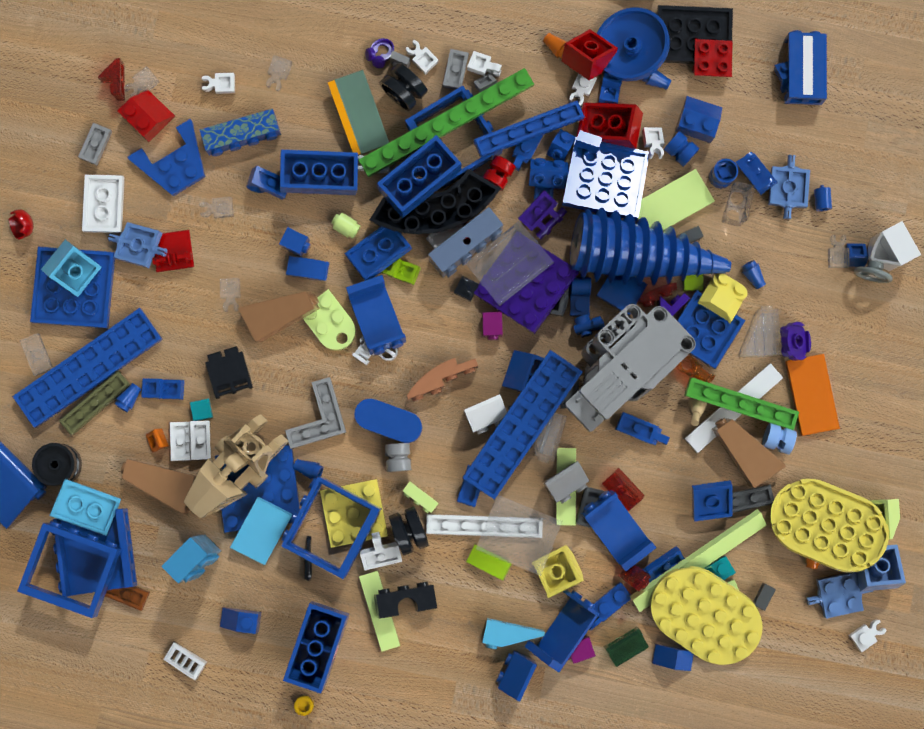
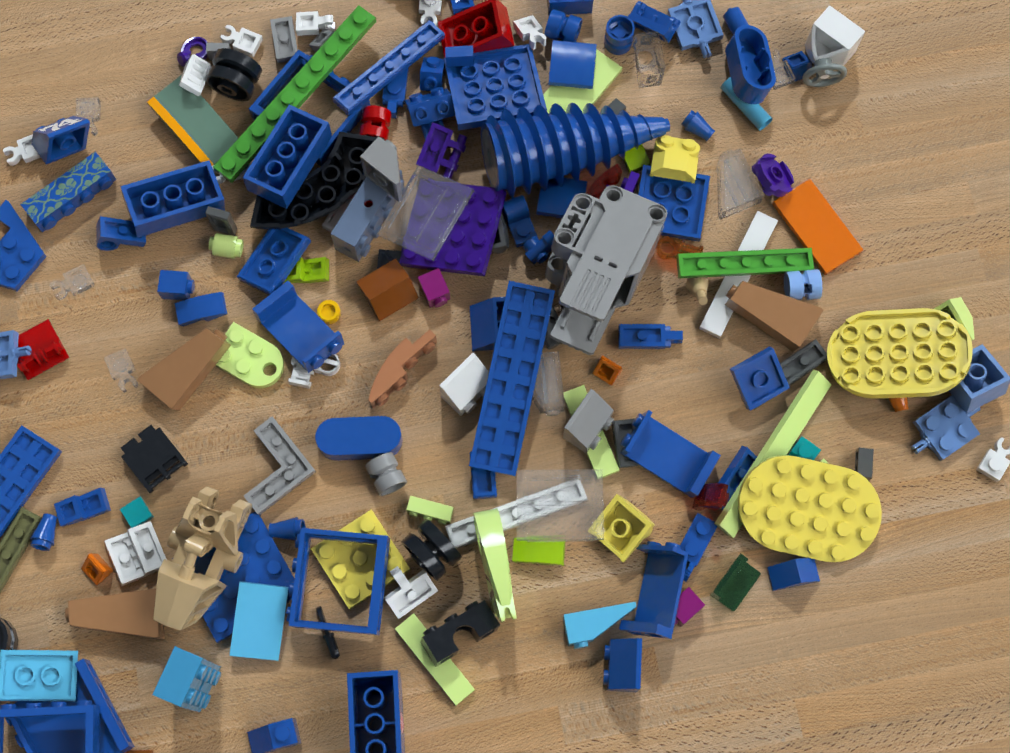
camera: 20 degrees left, 10 degrees down
(249, 86) = (61, 138): none -> blue slope
(349, 205) = (221, 221): none -> dark grey plate
(374, 73) = (194, 74): none -> white slope
(404, 310) = (329, 311): none -> yellow tile
(451, 562) = (495, 562): none -> yellowish green animal
(456, 311) = (388, 289): none -> dark orange slope
(489, 220) = (382, 167): none -> light grey slope
(599, 443) = (607, 370): none -> orange slope
(624, 488) = (663, 410): clear red slope -> none
(675, 184) = (572, 64): none -> blue slope
(800, 270) = (753, 112): none -> medium azure piece
(817, 241) = (750, 64): none -> blue plant

